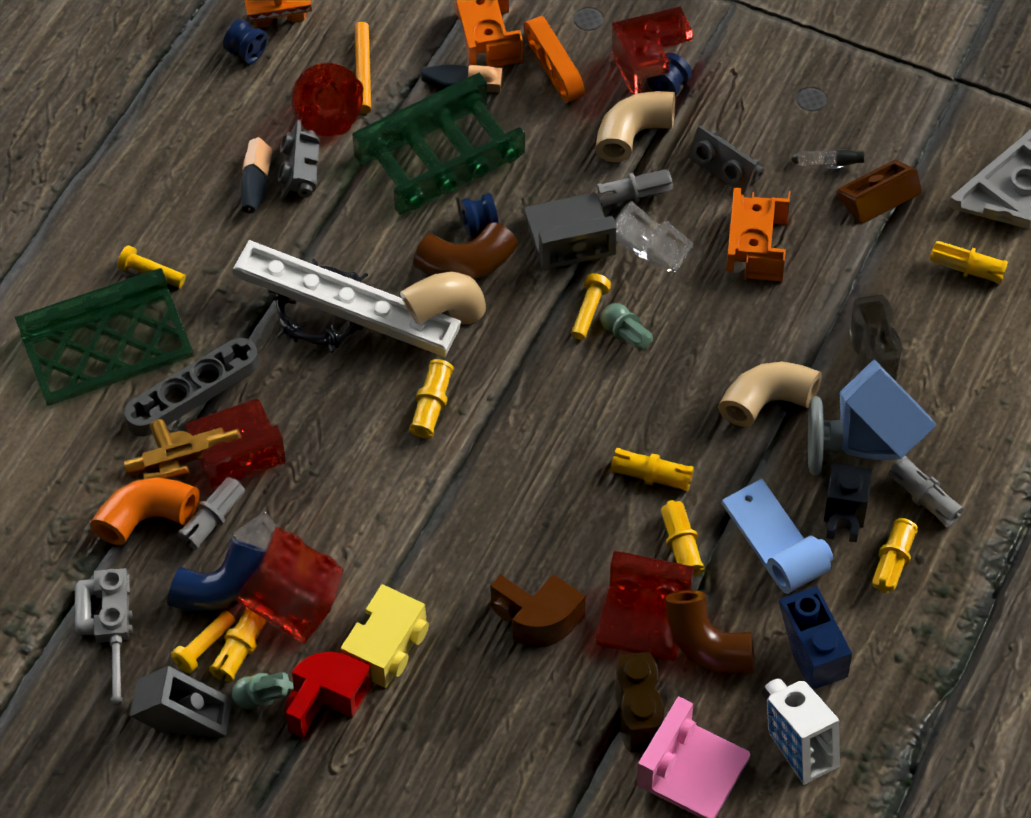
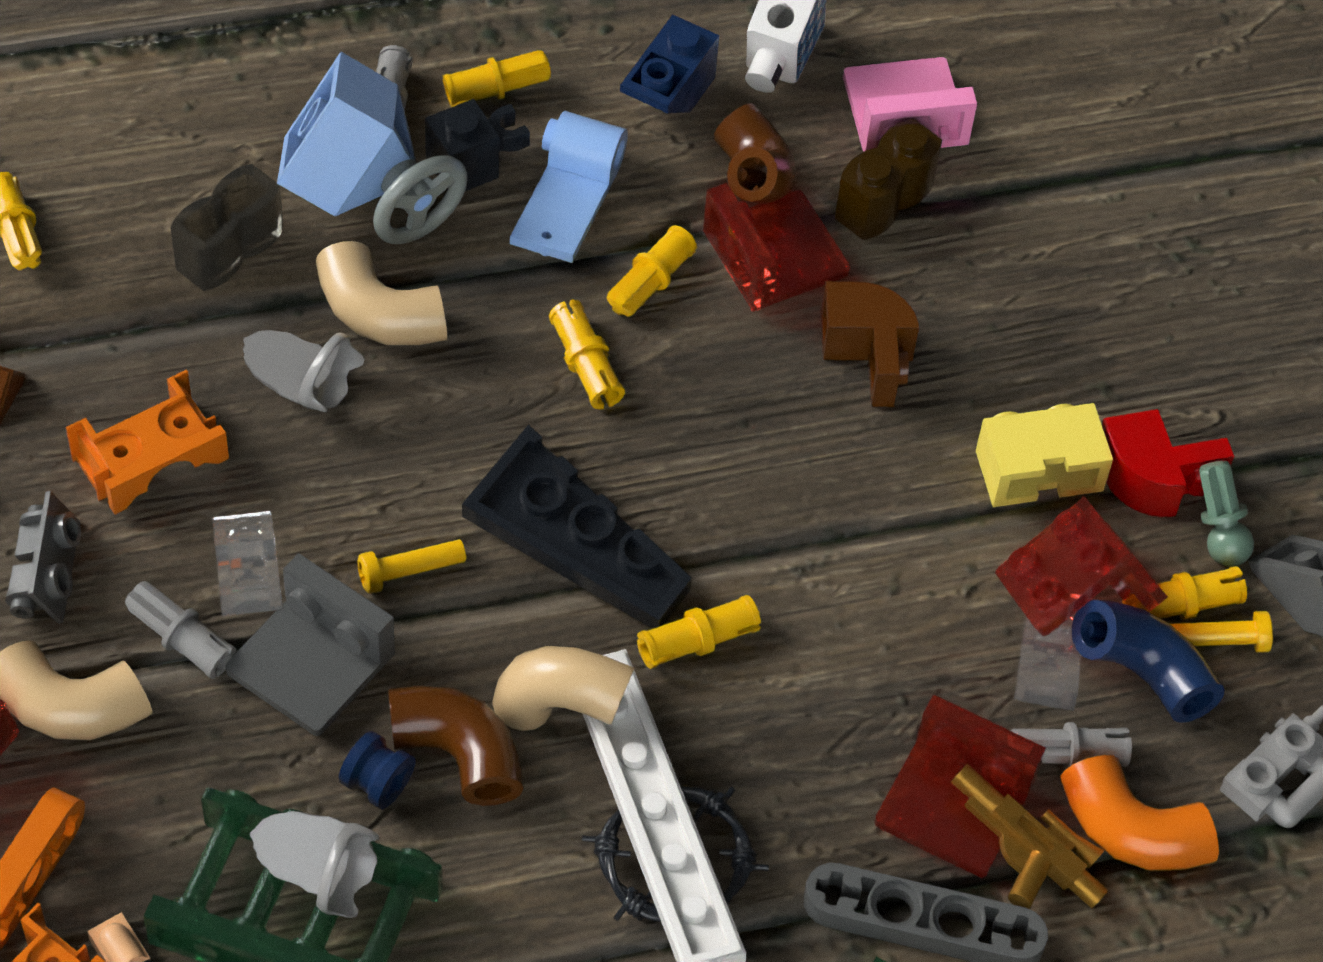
camera: 135 degrees left, 0 degrees up
(435, 153) = (319, 856): none -> light grey piece
(550, 383) = (560, 522): none -> black wing
(625, 326) = (400, 528): sand green axle -> none
(753, 327) = (302, 369): none -> light grey piece

